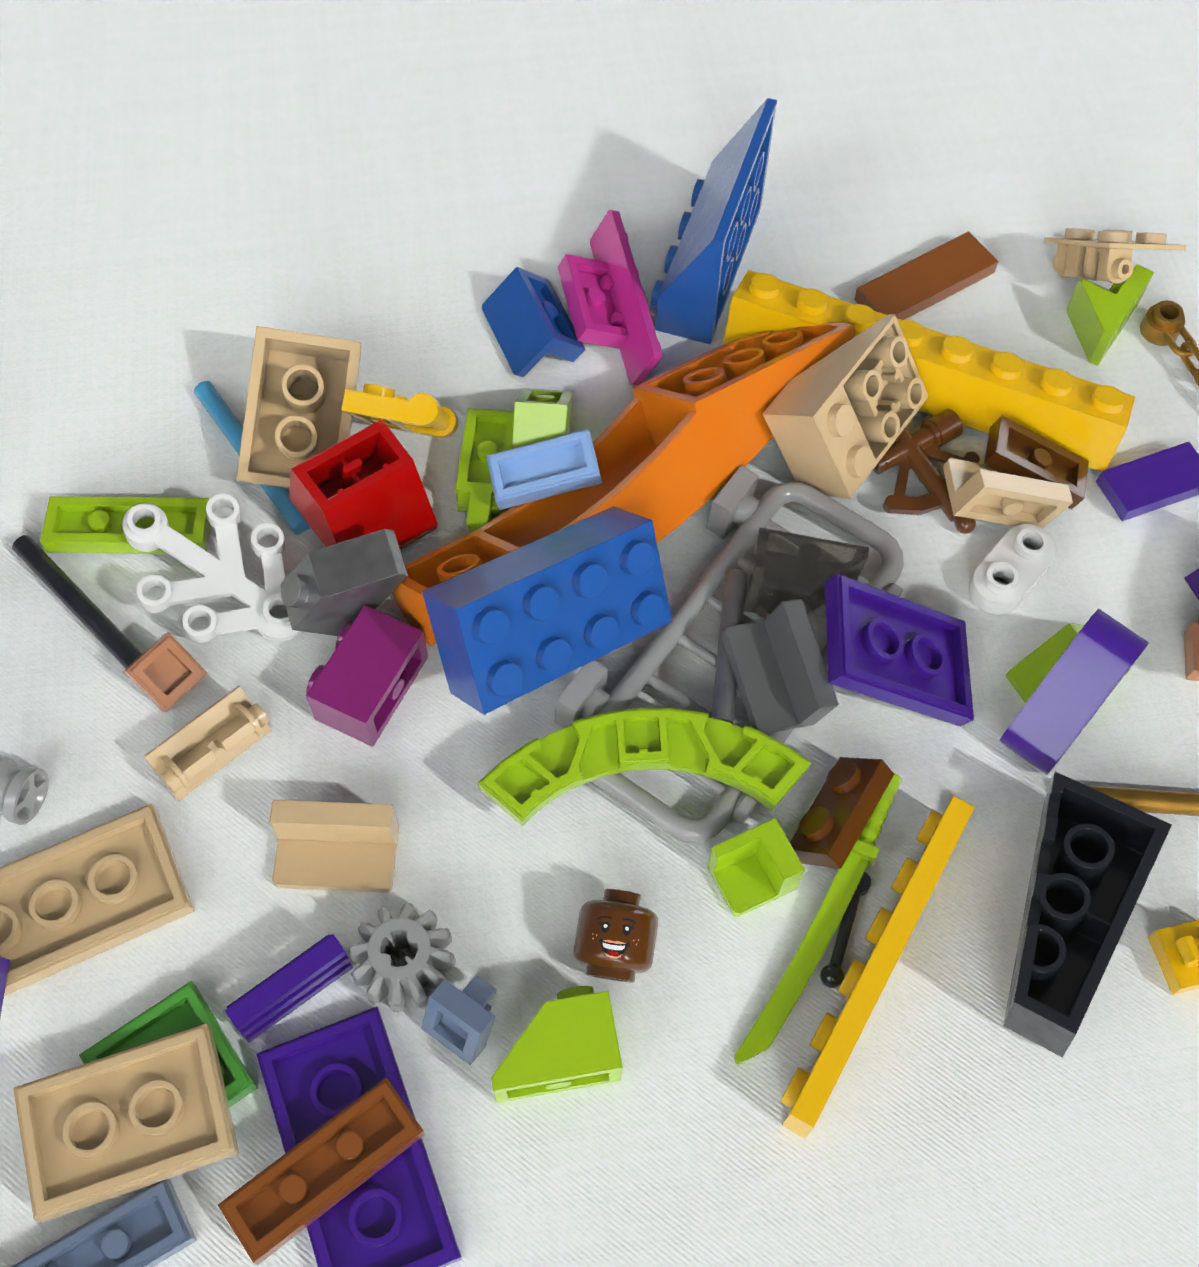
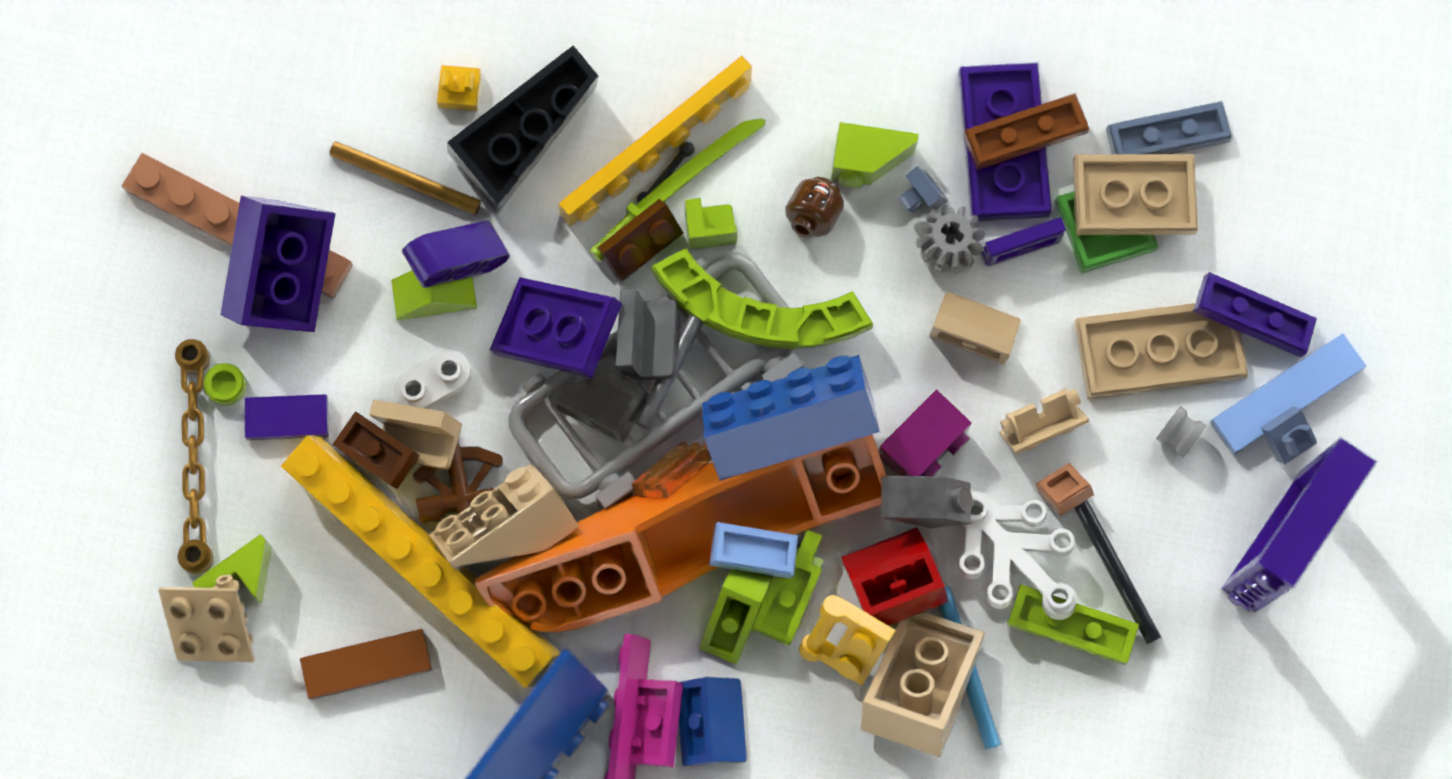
camera: 165 degrees left, 15 degrees up
(687, 530) = (672, 471): none -> clear orange tile

